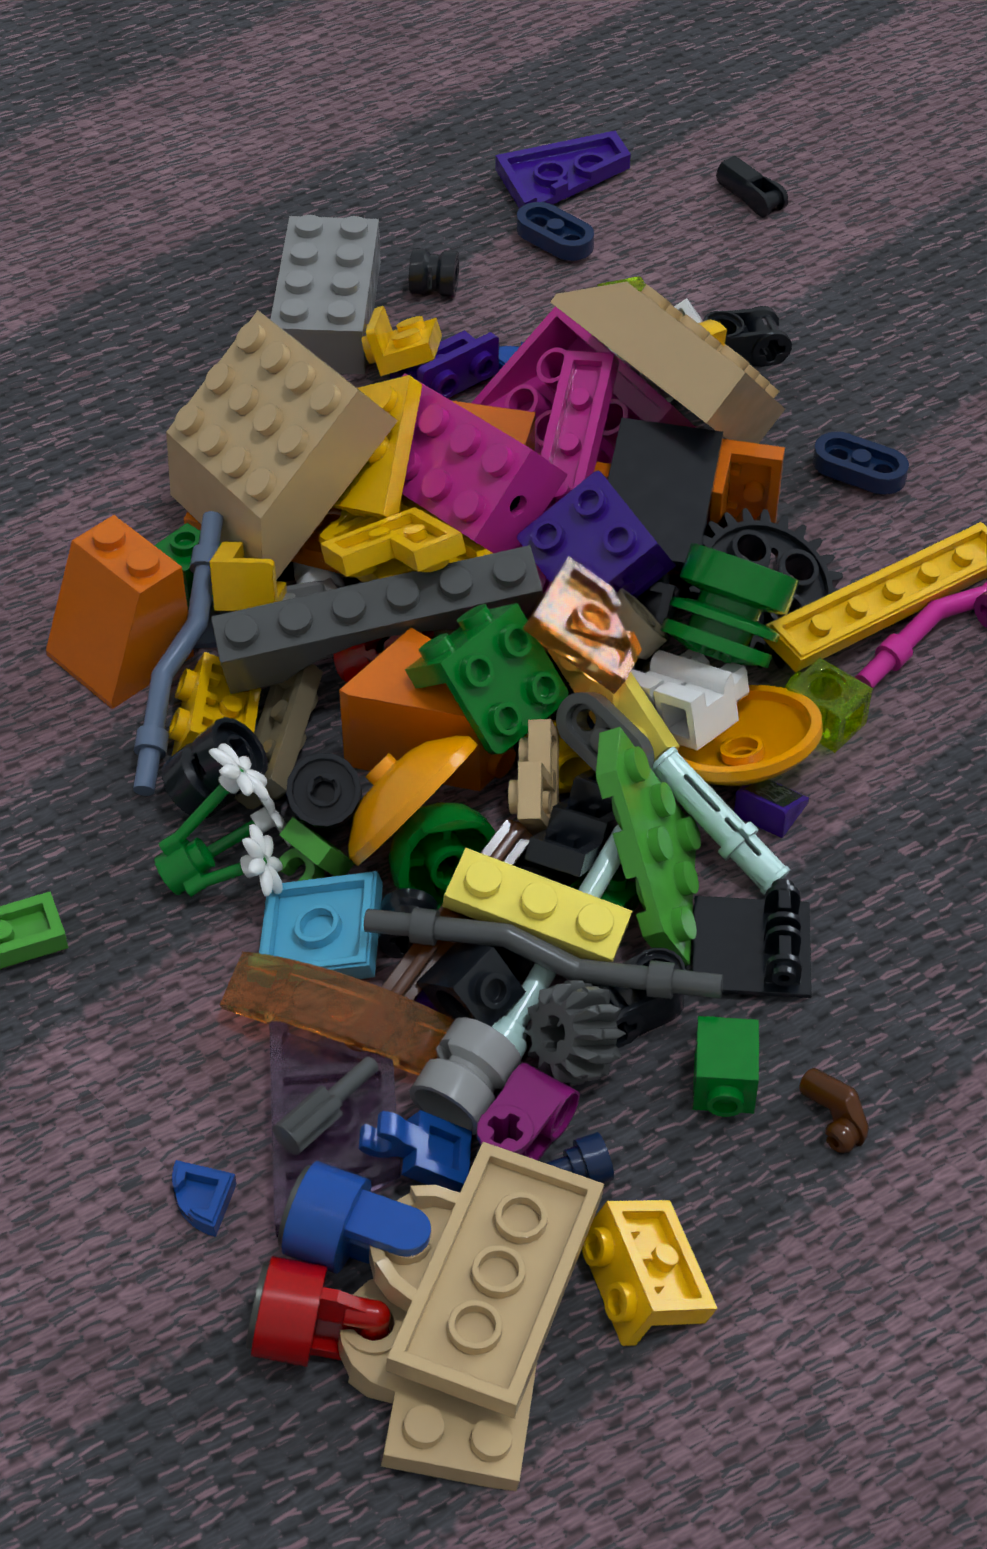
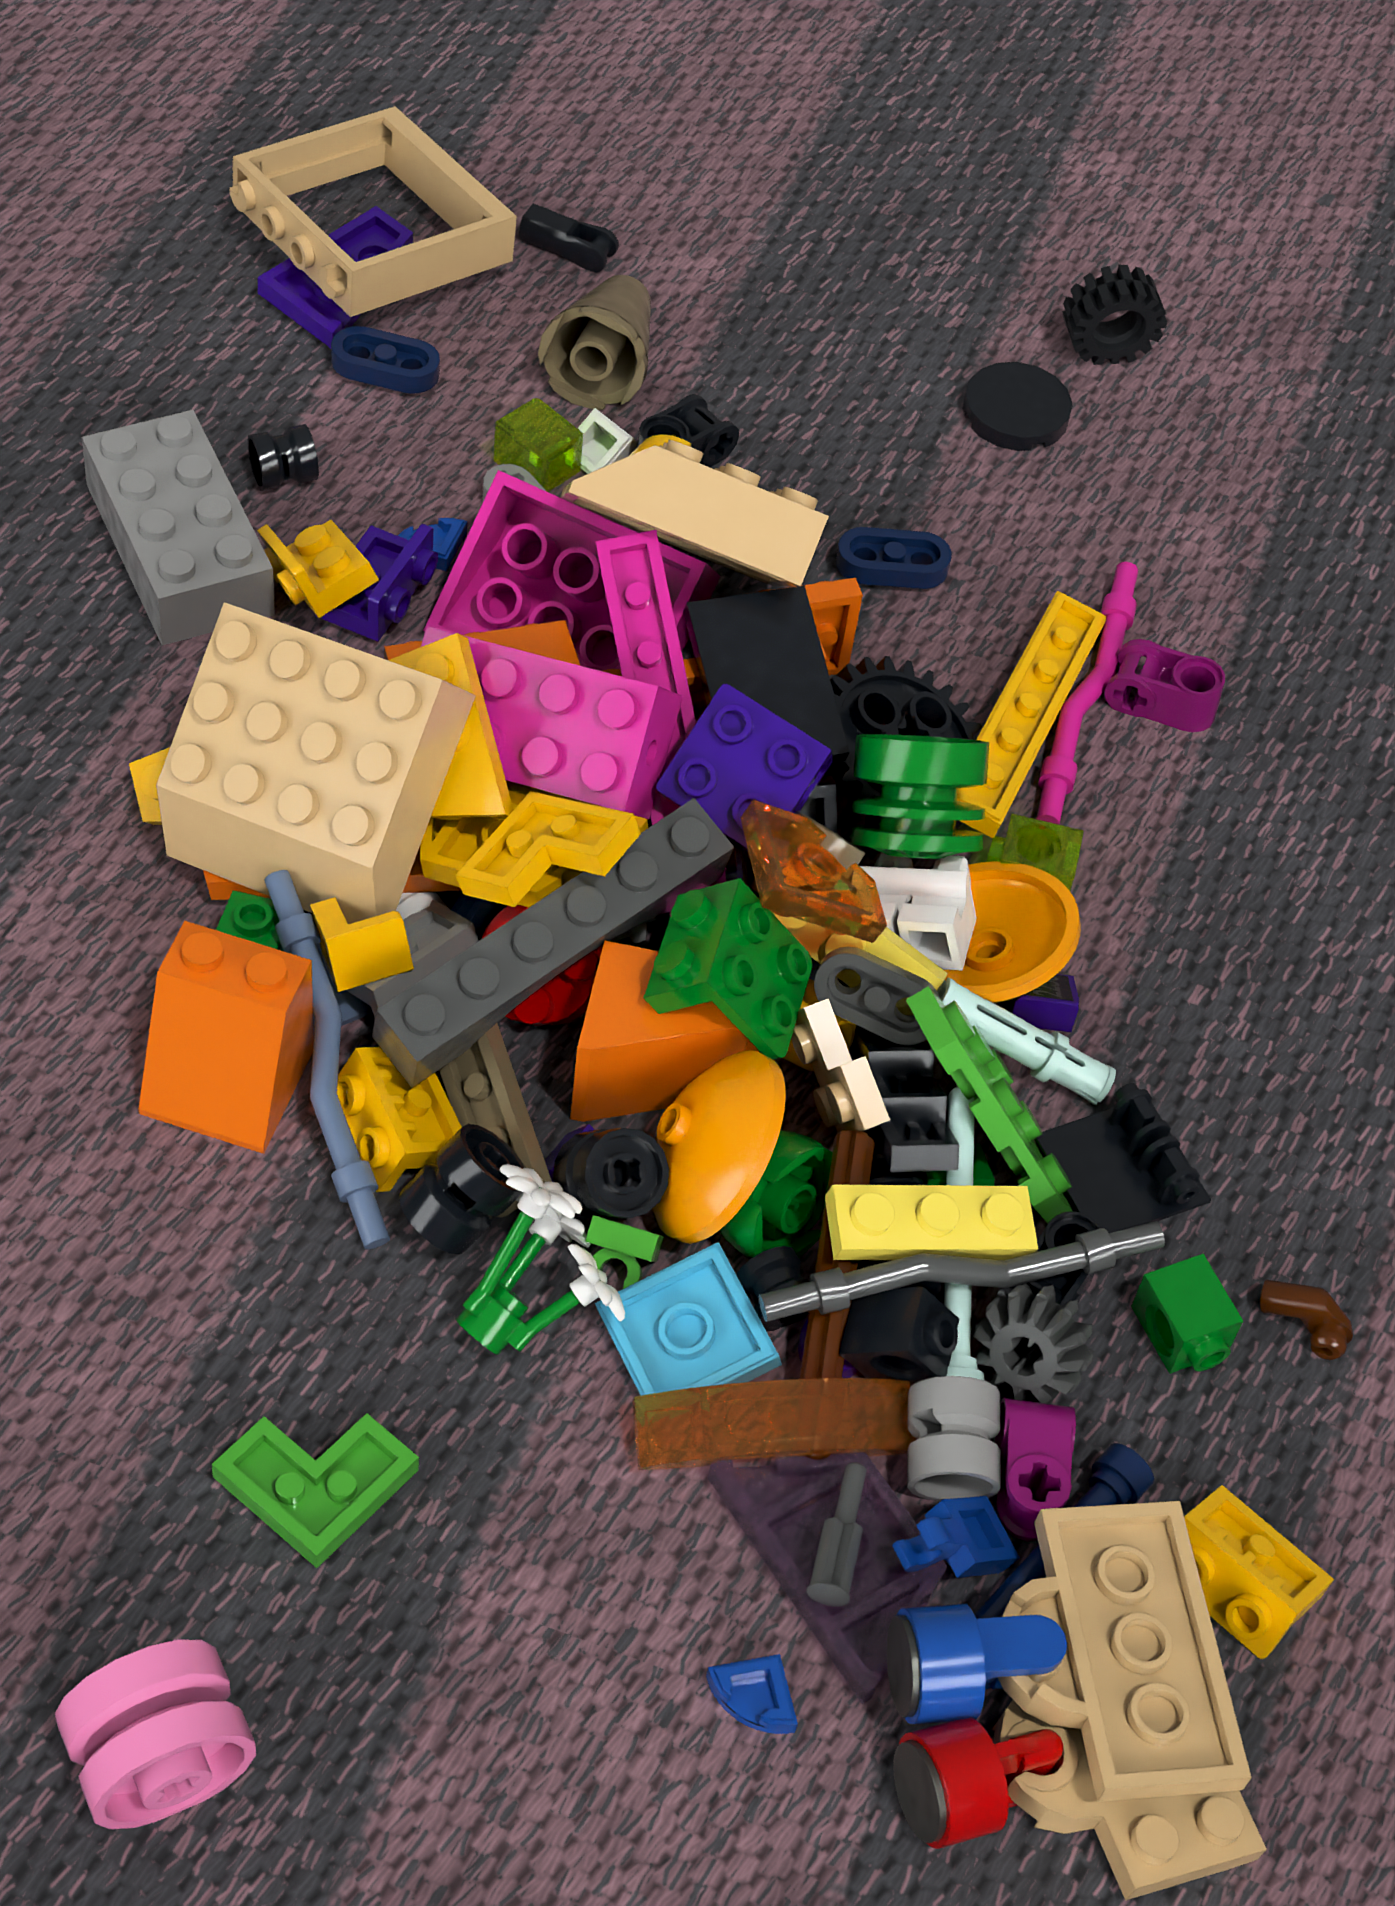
camera: 35 degrees left, 5 degrees up
(603, 169) = (480, 222): none -> tan window
(718, 250) = (600, 344): none -> dark tan cone

